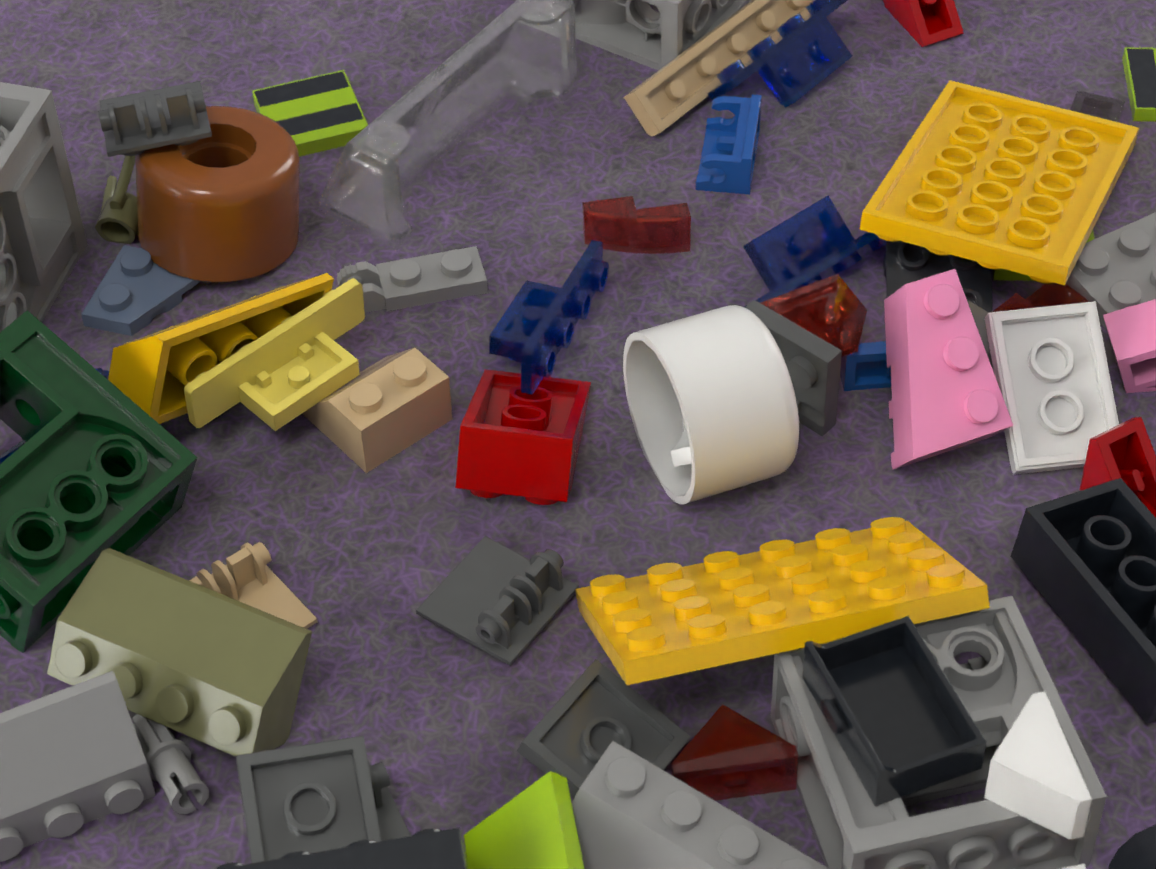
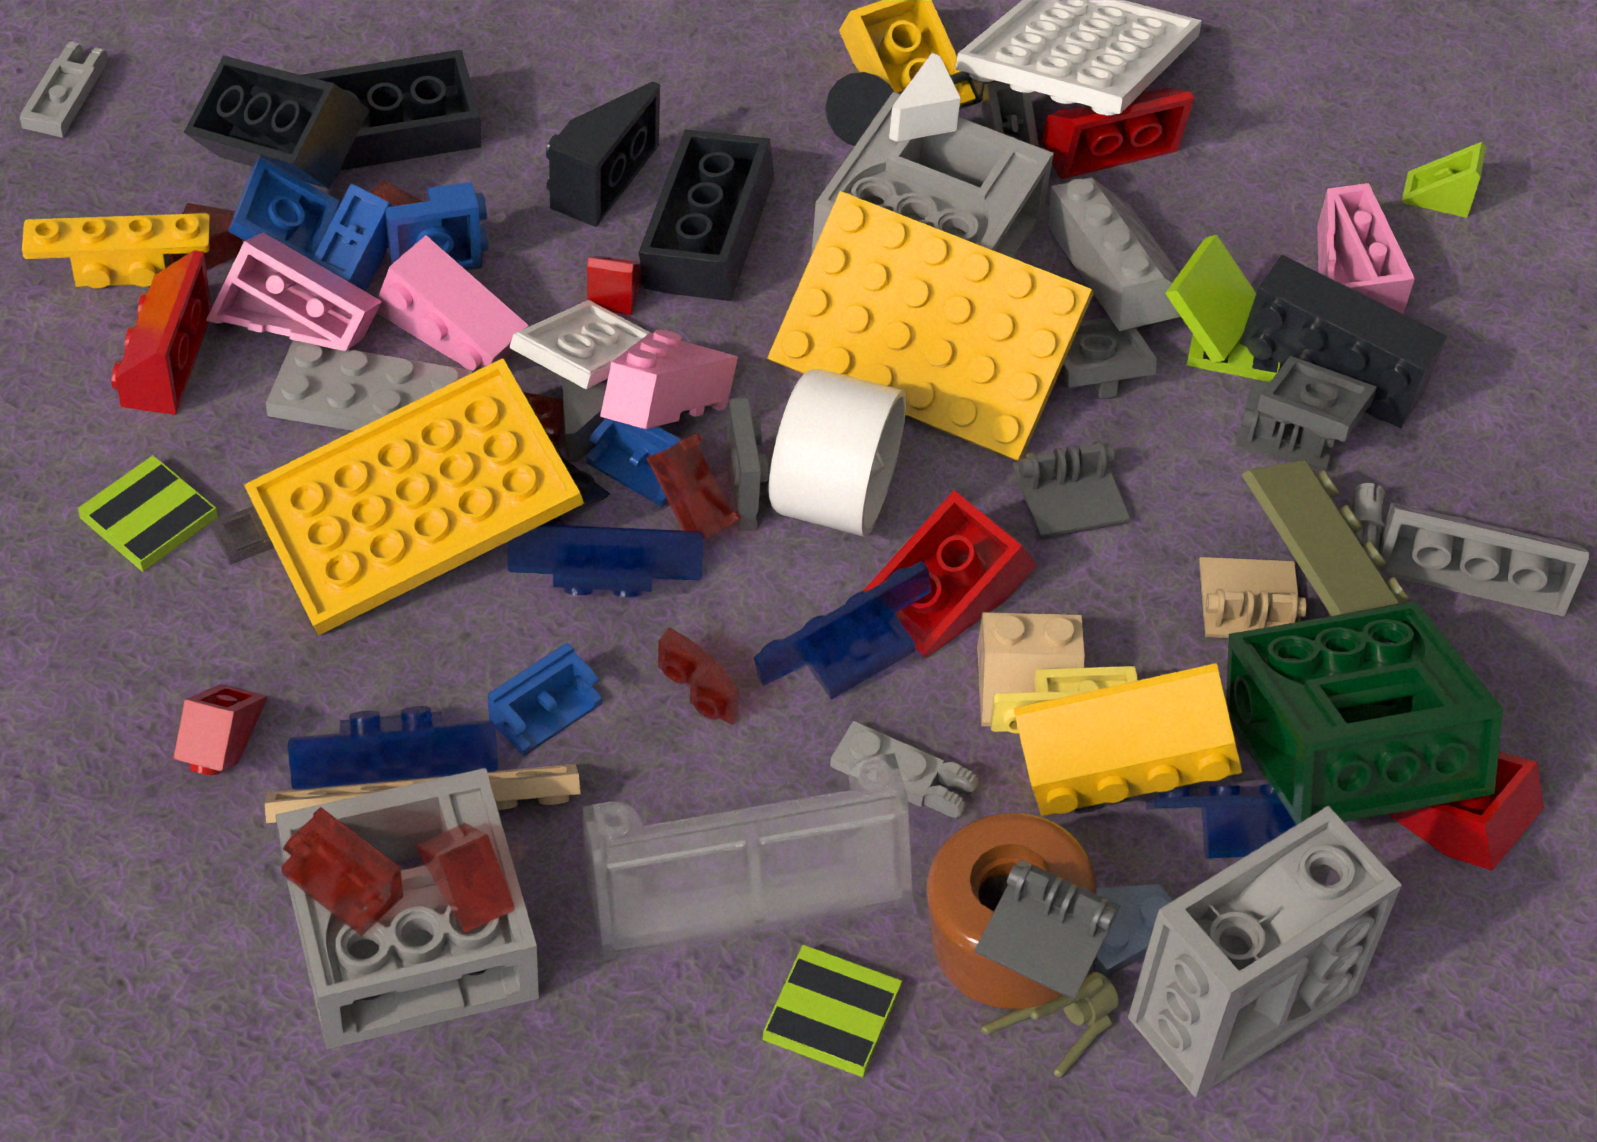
camera: 145 degrees left, 5 degrees up
(892, 710) = (964, 180): black container -> none

